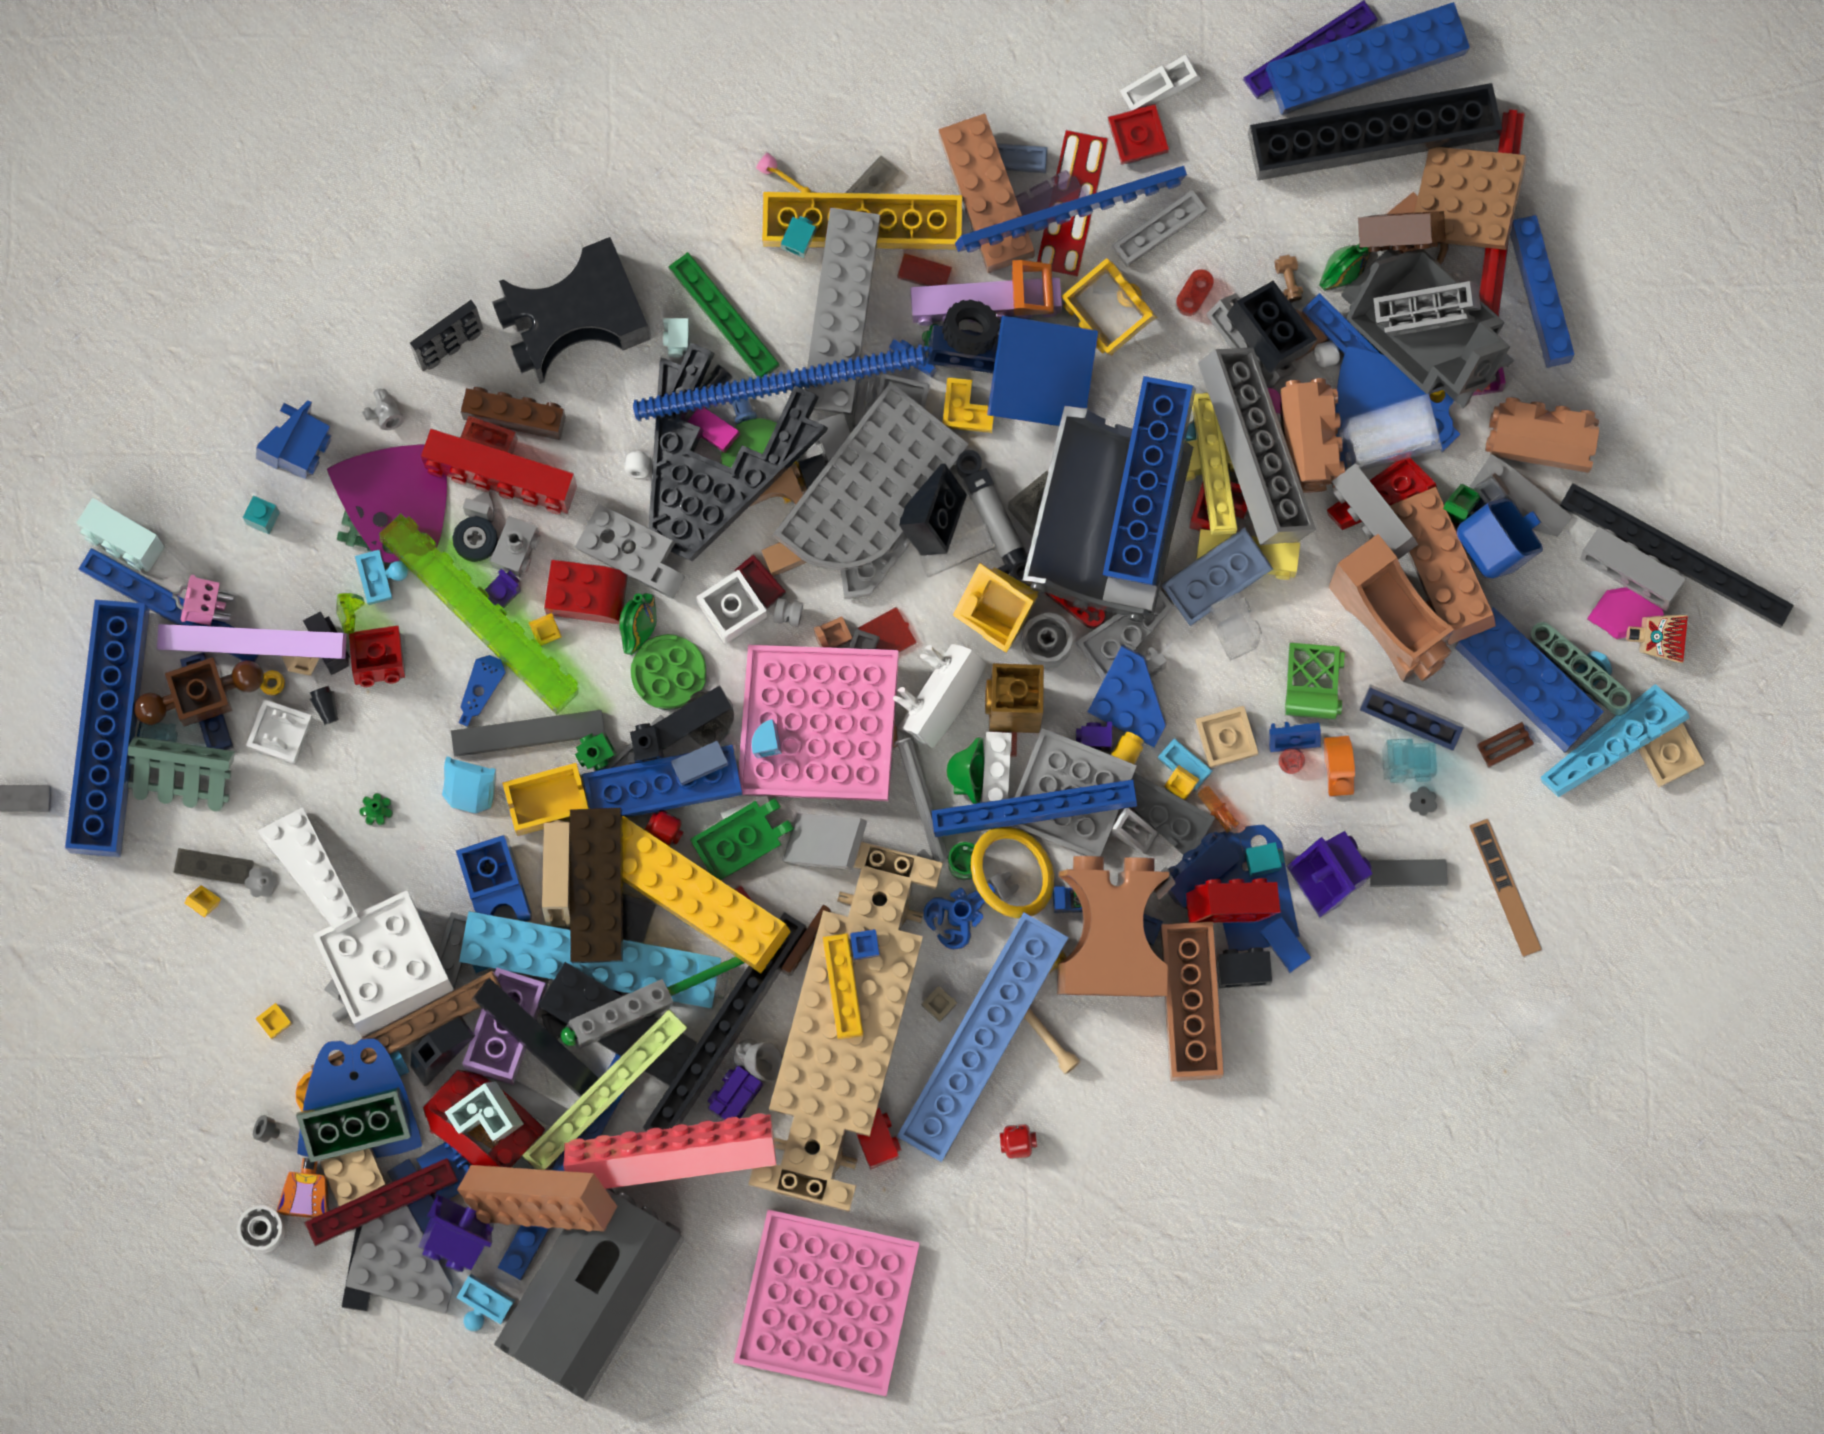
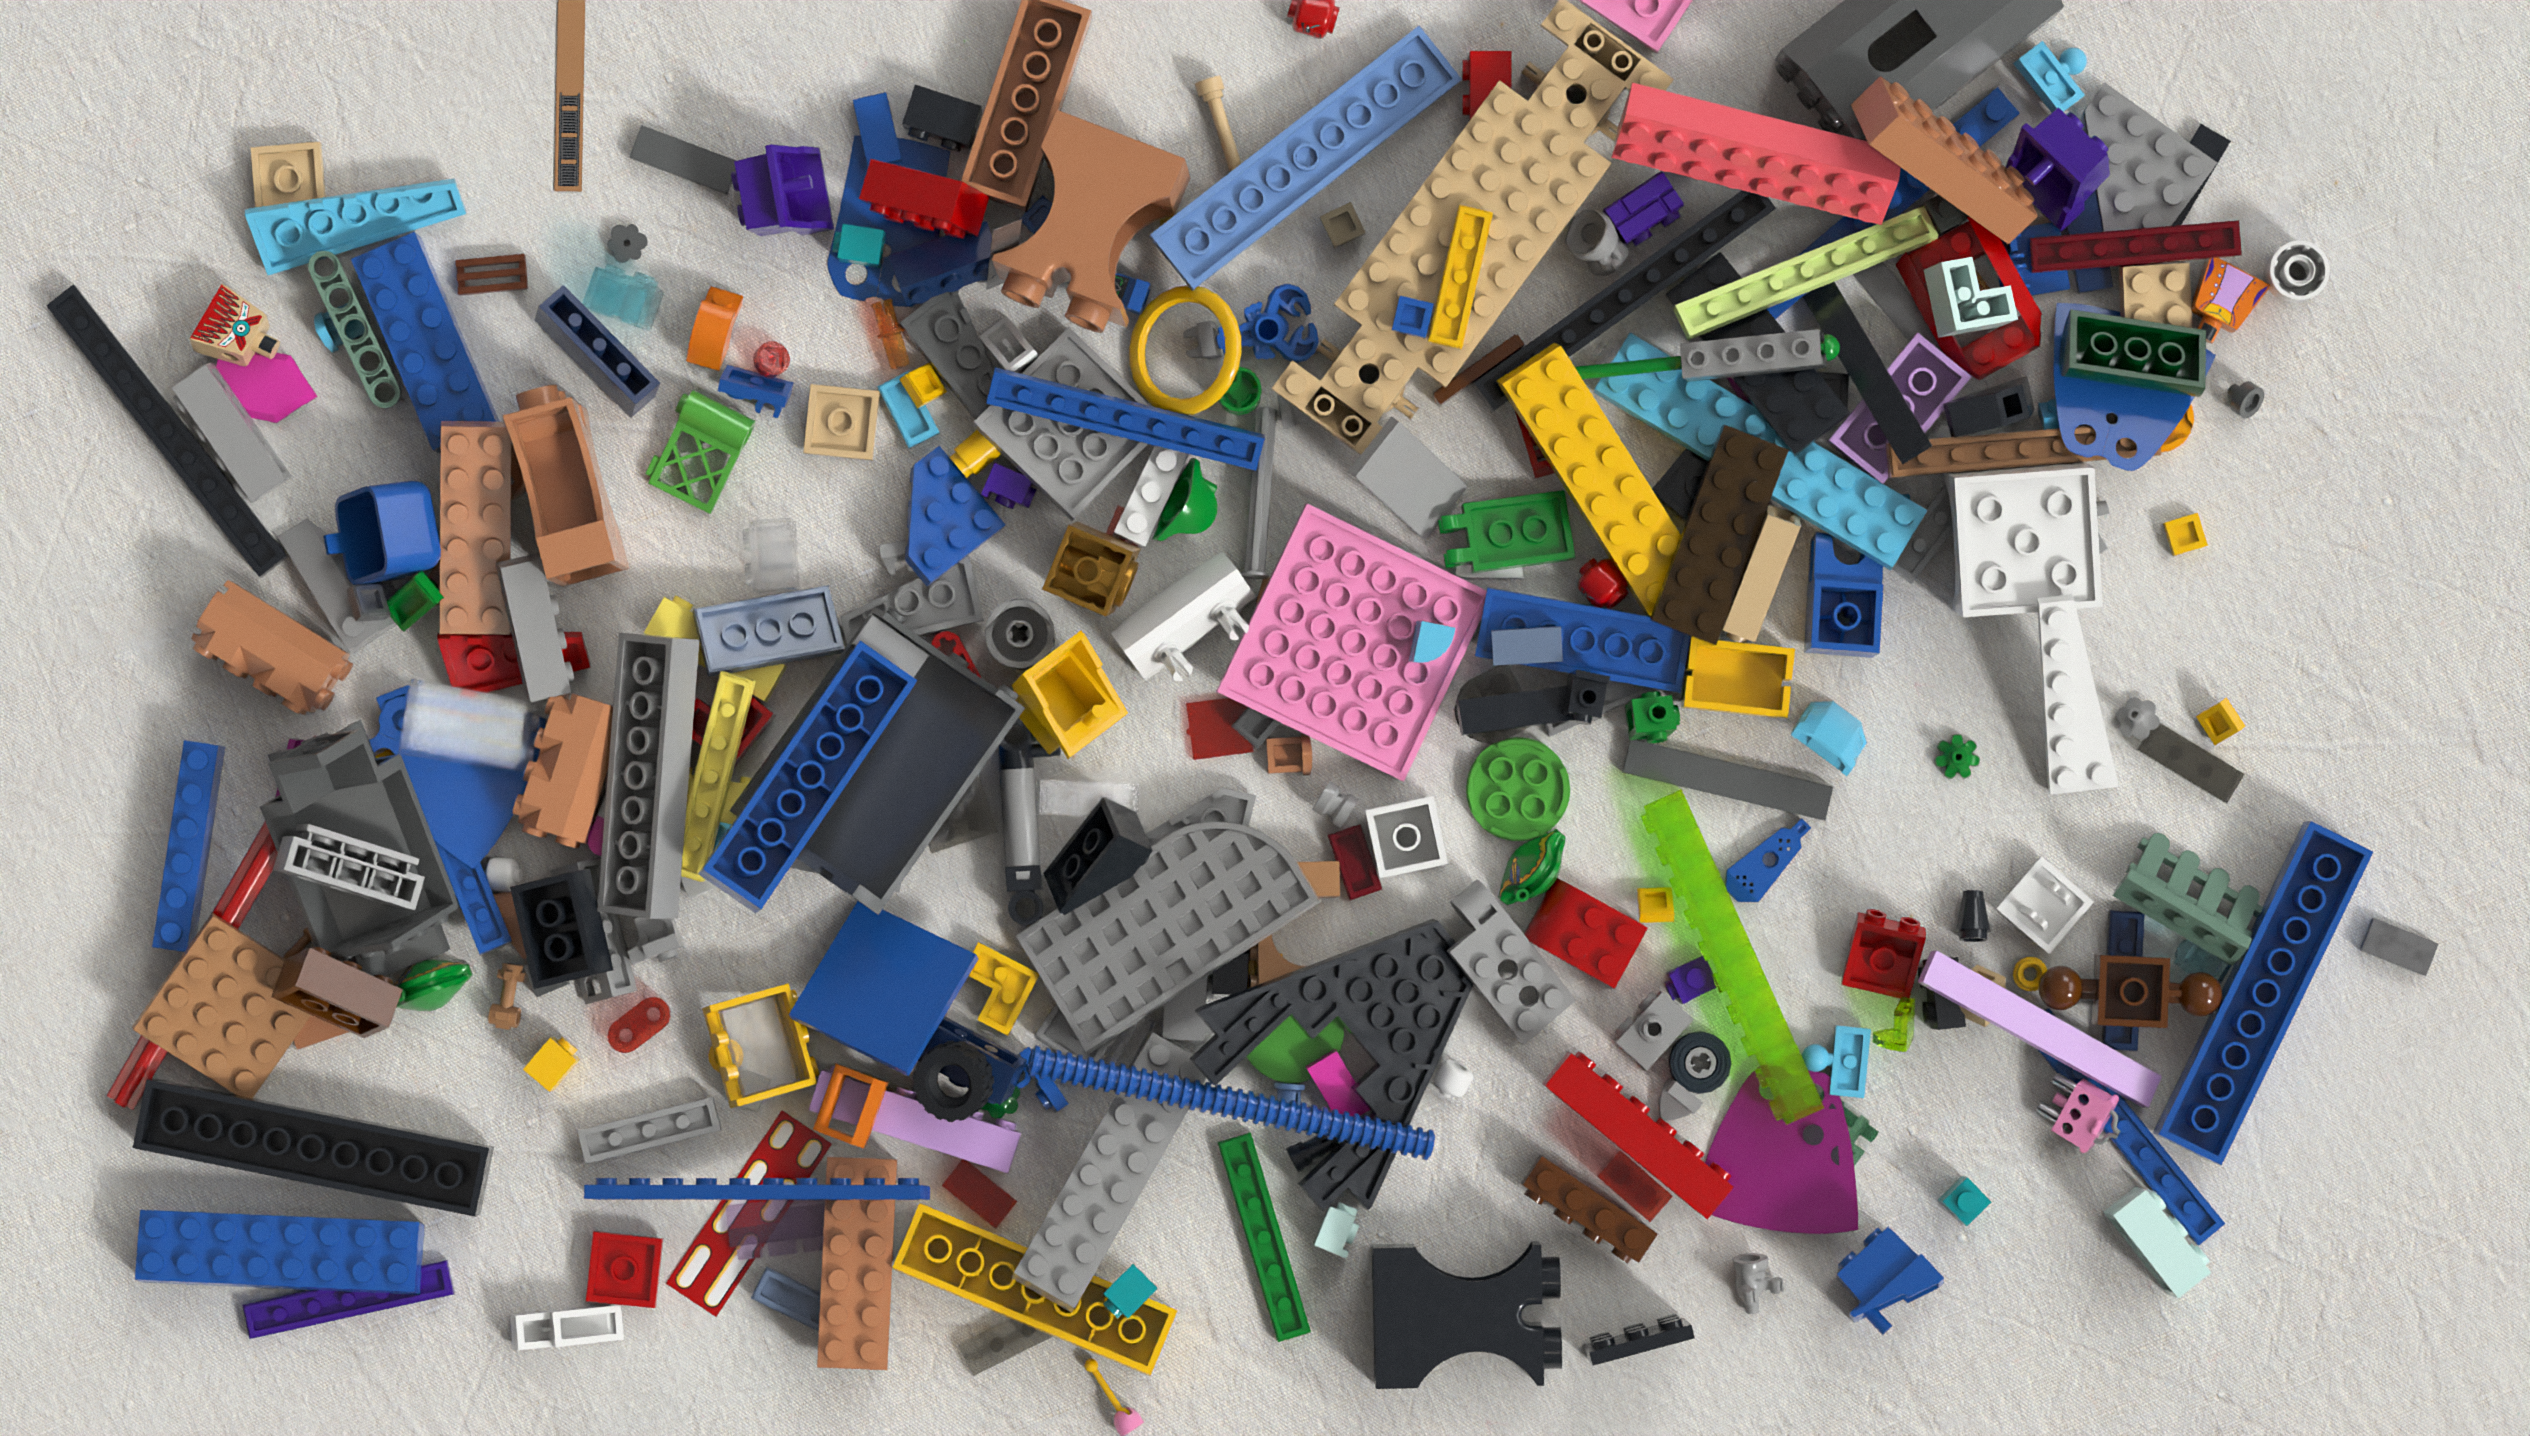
camera: 160 degrees left, 10 degrees up
(1204, 345) = (655, 939): none -> light grey brick
(1241, 245) = (552, 1062): none -> yellow brick

